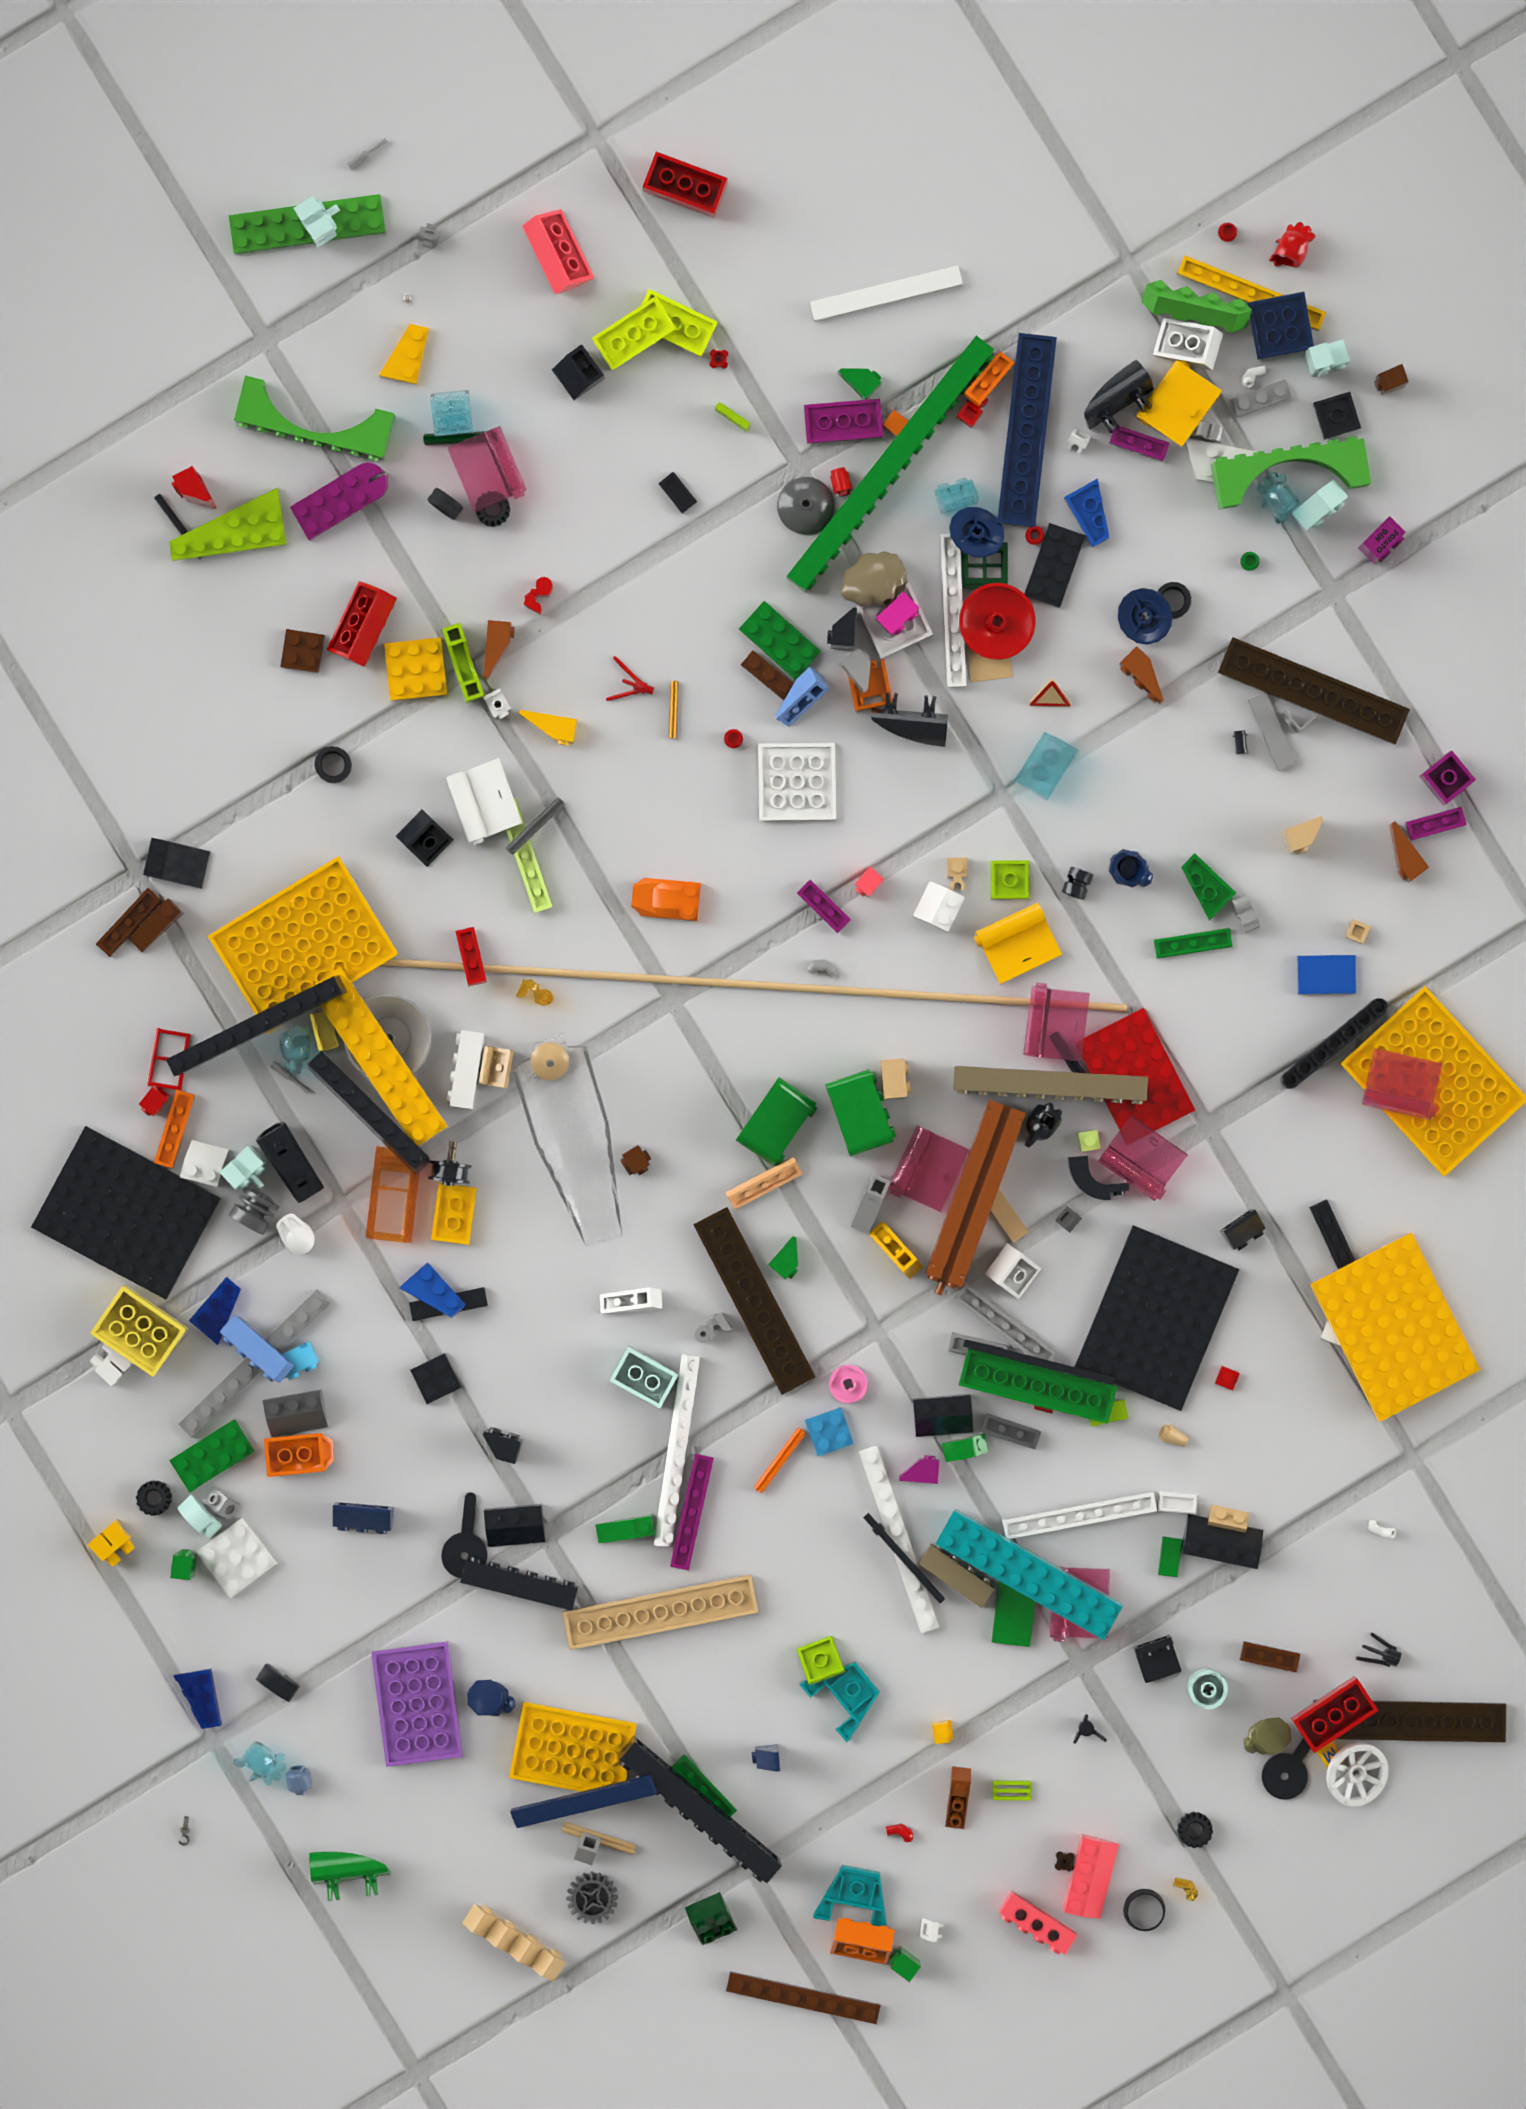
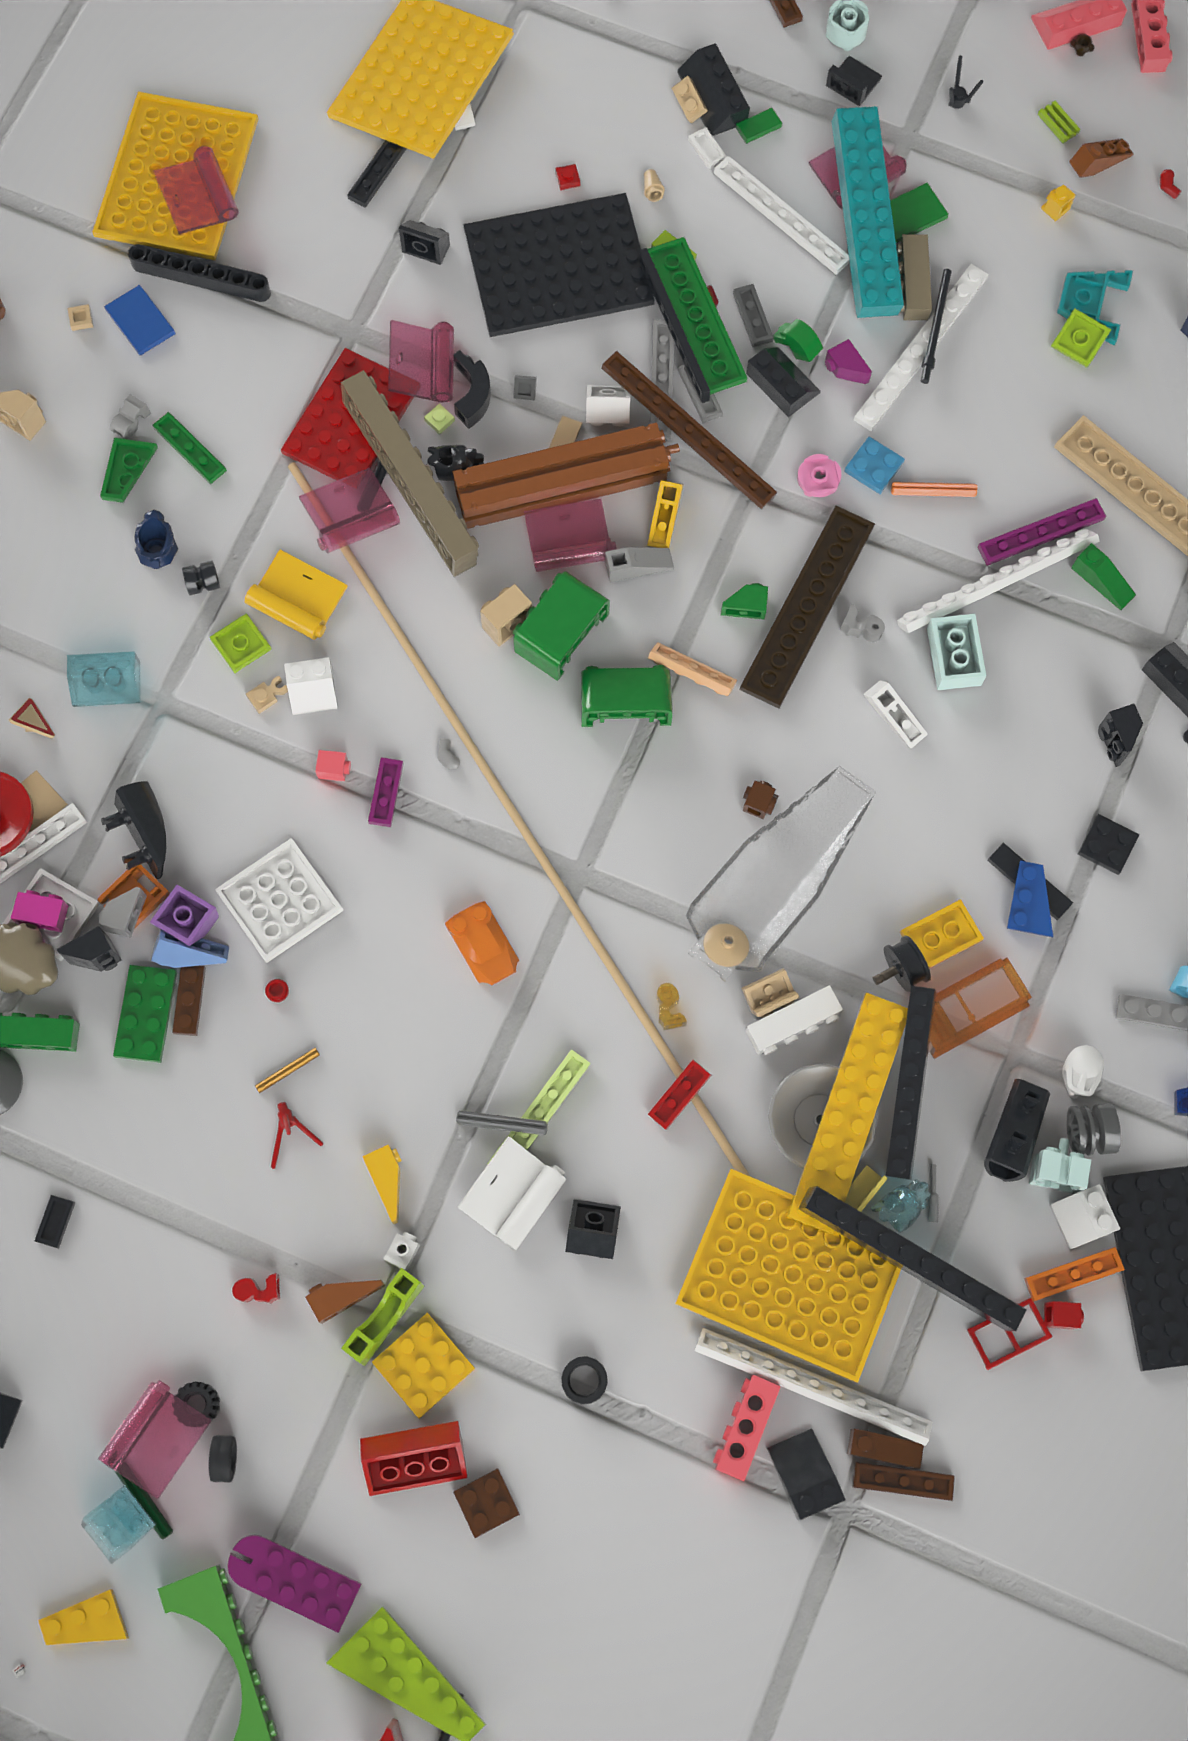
camera: 125 degrees left, 15 degrees down
(211, 823) = (767, 1393): none -> coral brick
(225, 907) = (814, 1386): none -> white plate
(825, 708) = (185, 916): none -> medium lavender slope
(947, 1312) = (689, 430): none -> reddish brown plate

